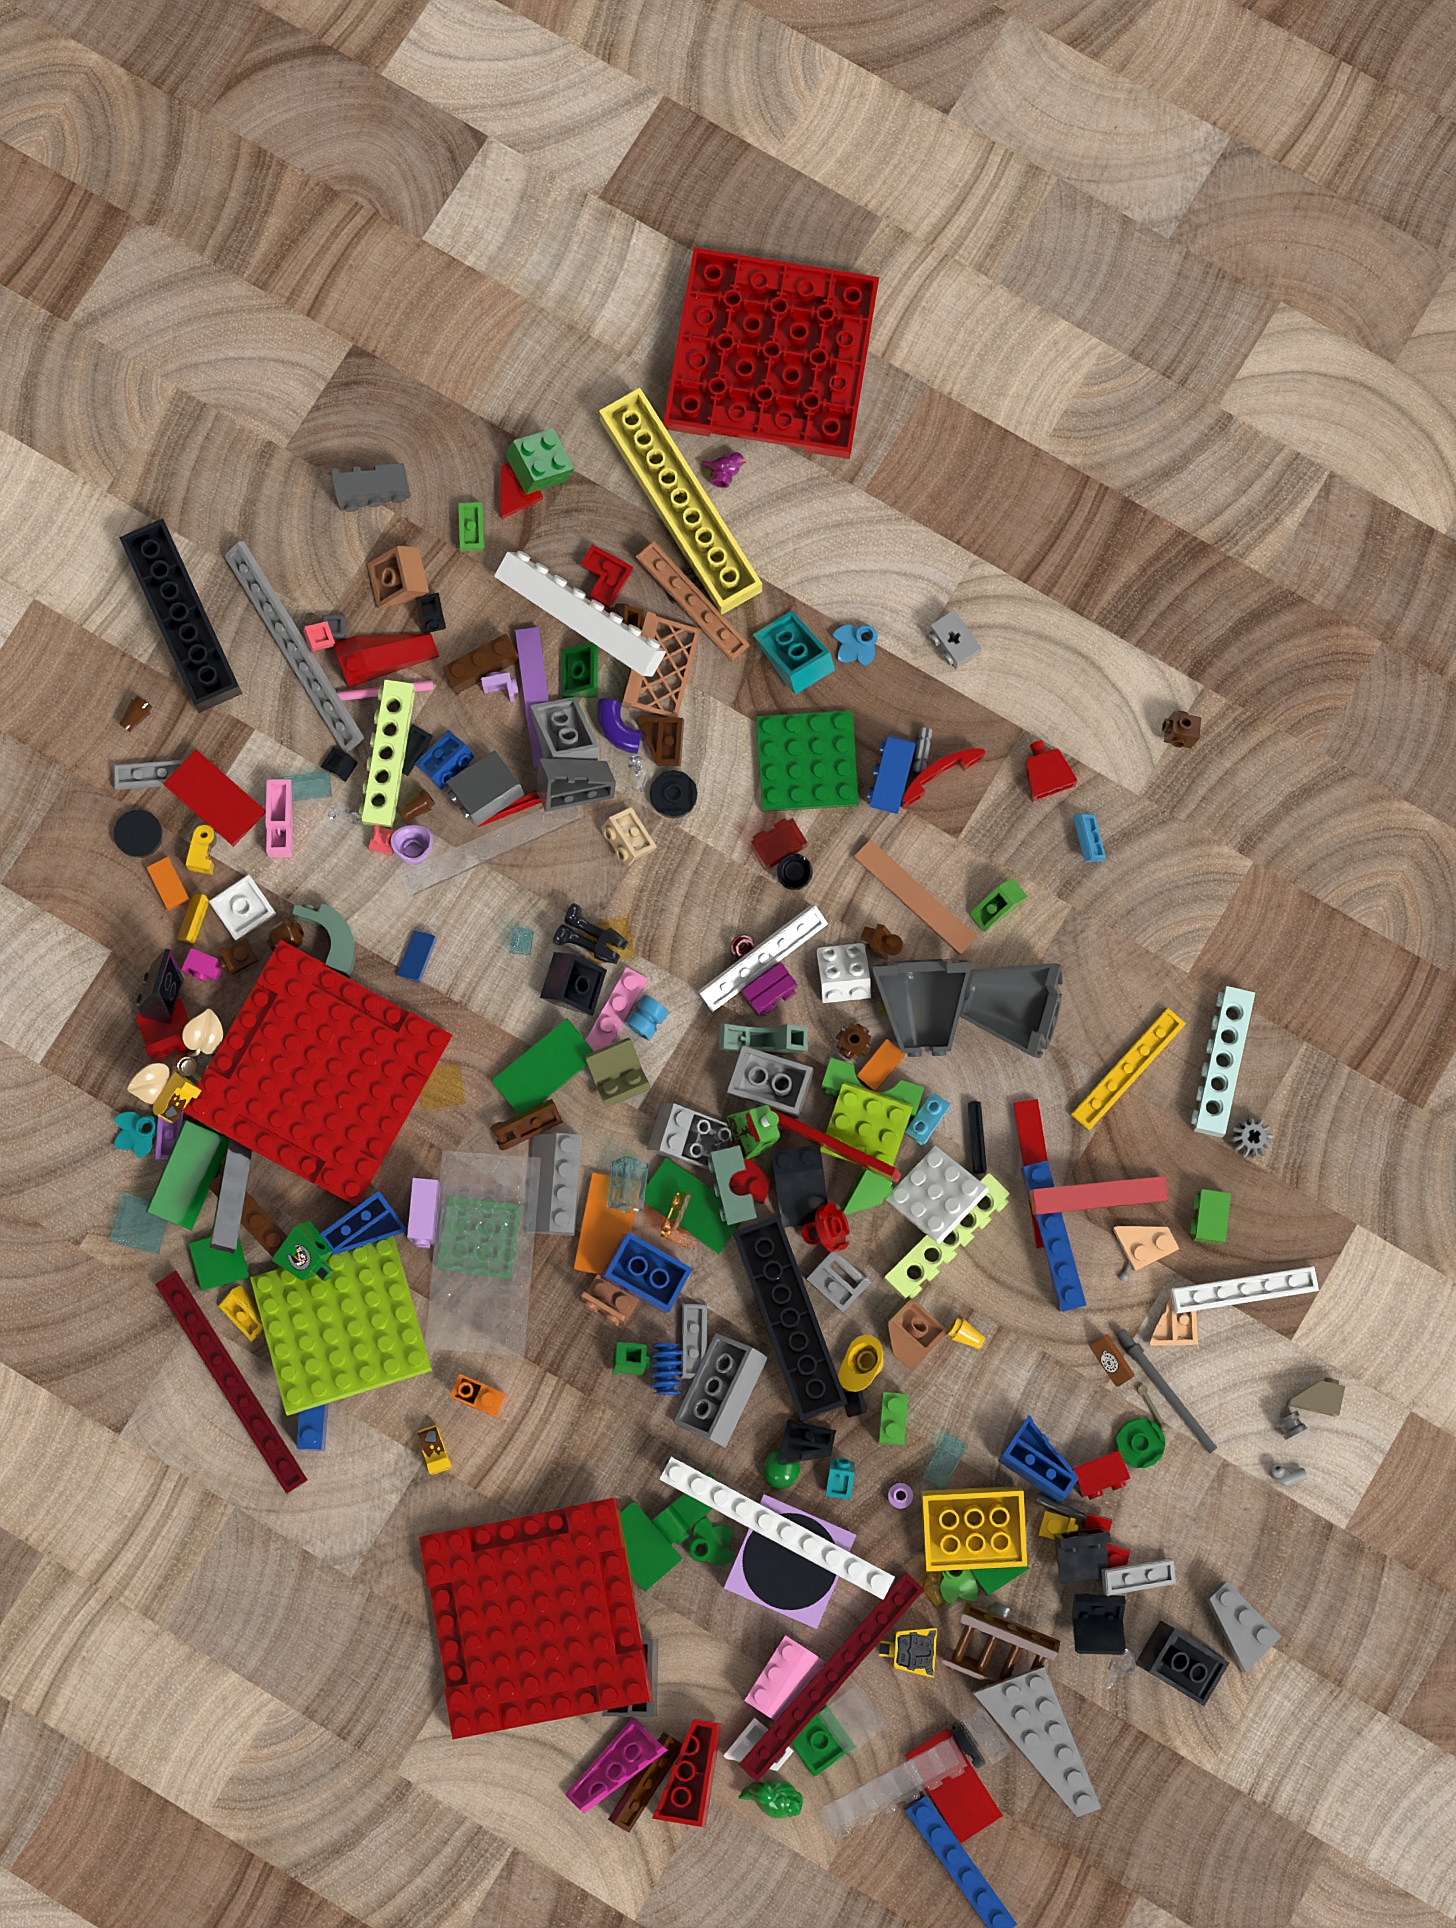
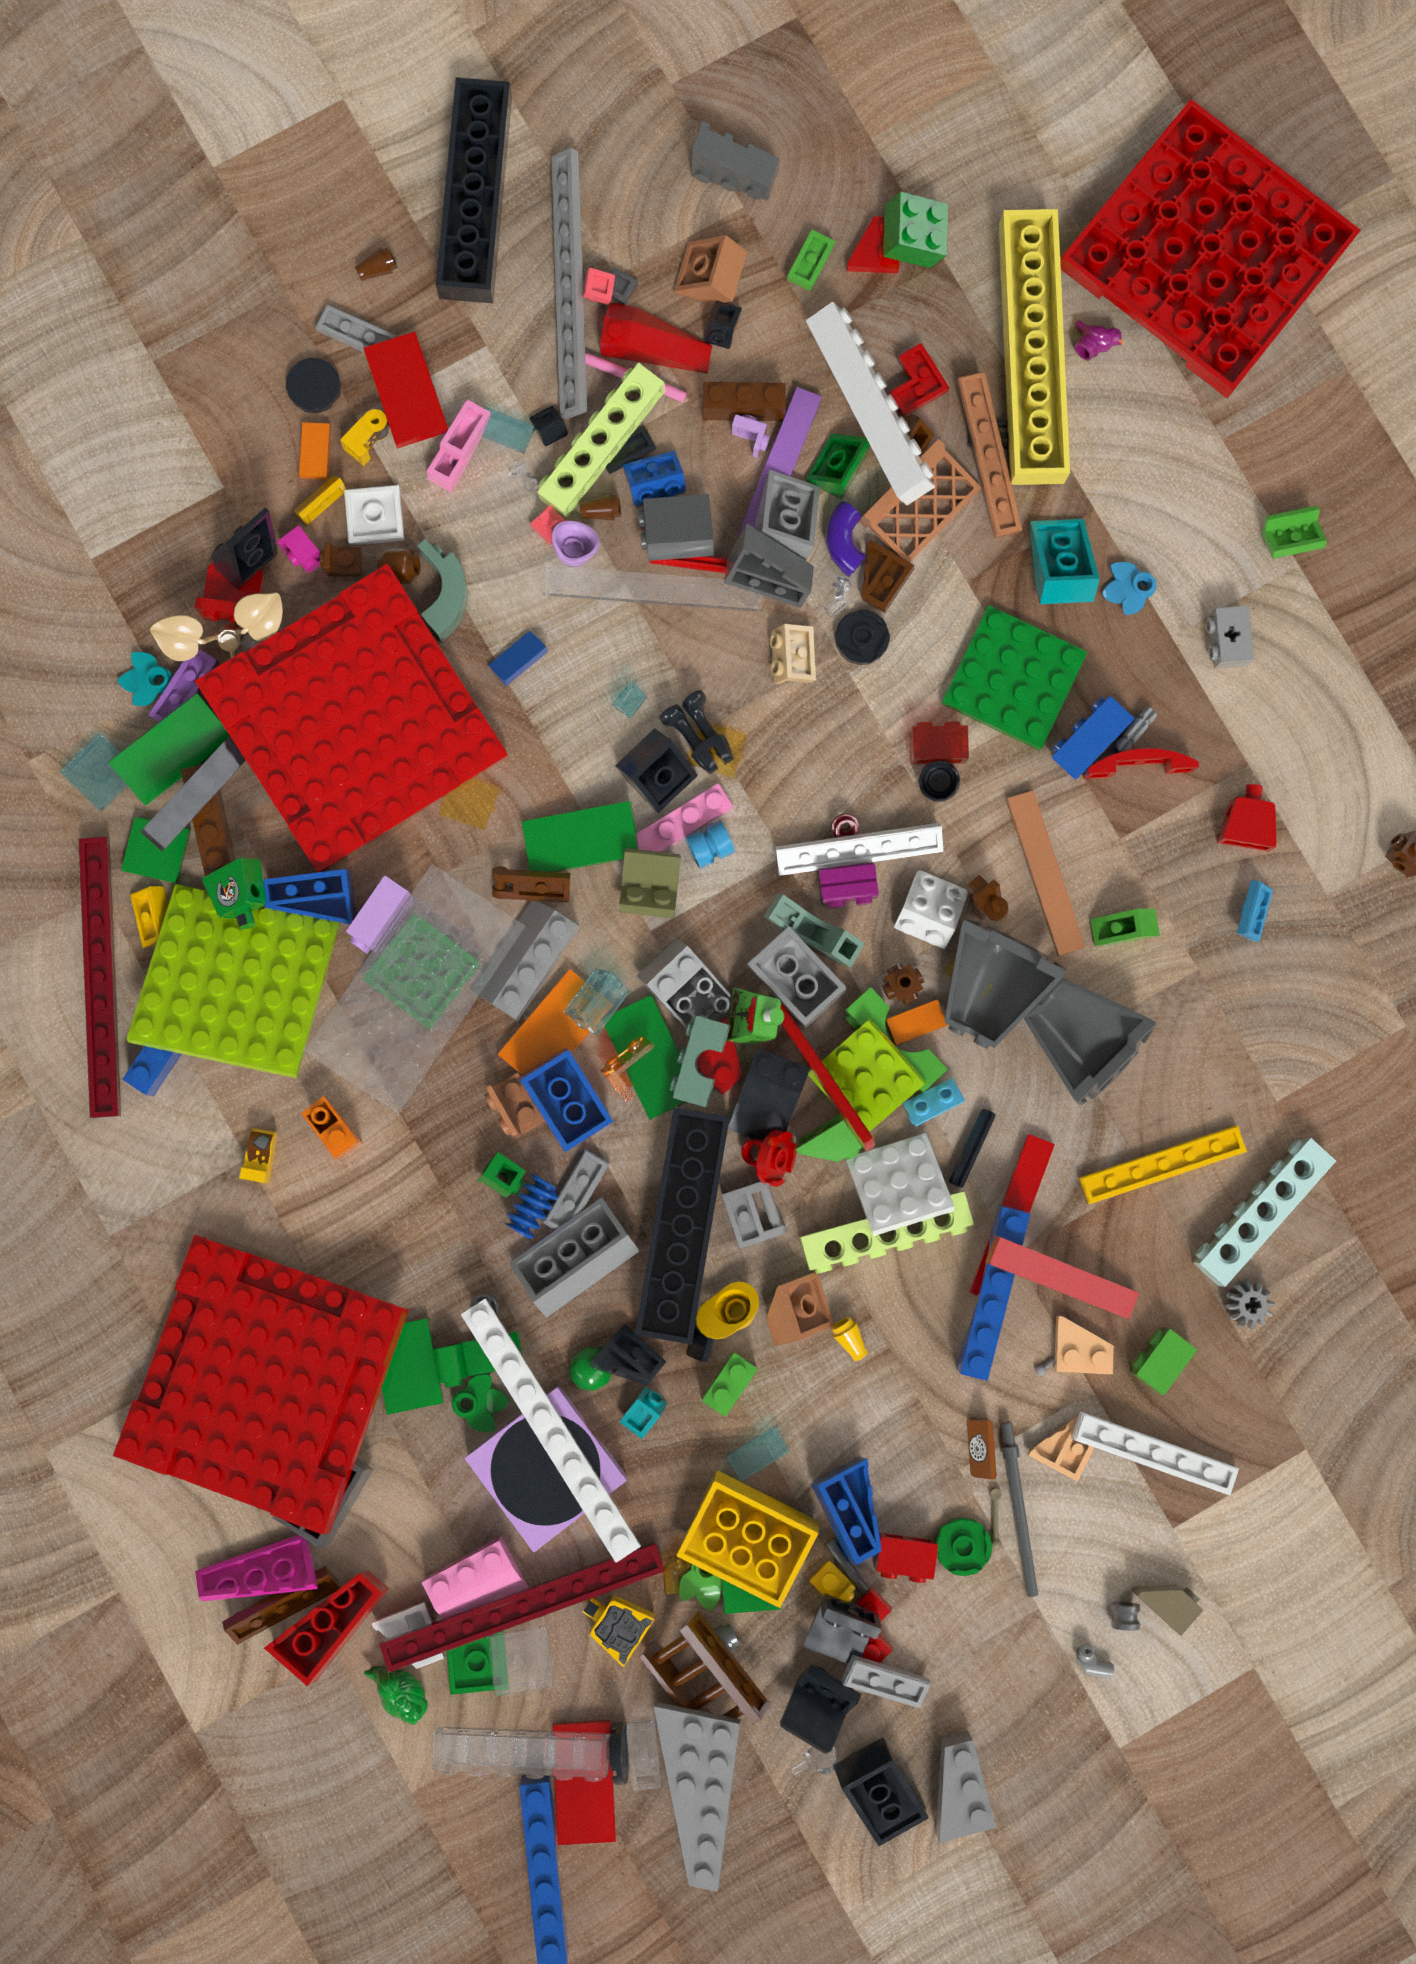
camera: 20 degrees right, 5 degrees up
(174, 1097) = (194, 663): yellow leg -> none
(908, 1495) = (687, 1456): lavender plate -> none
(957, 534) = (1293, 532): none -> bright green bracket

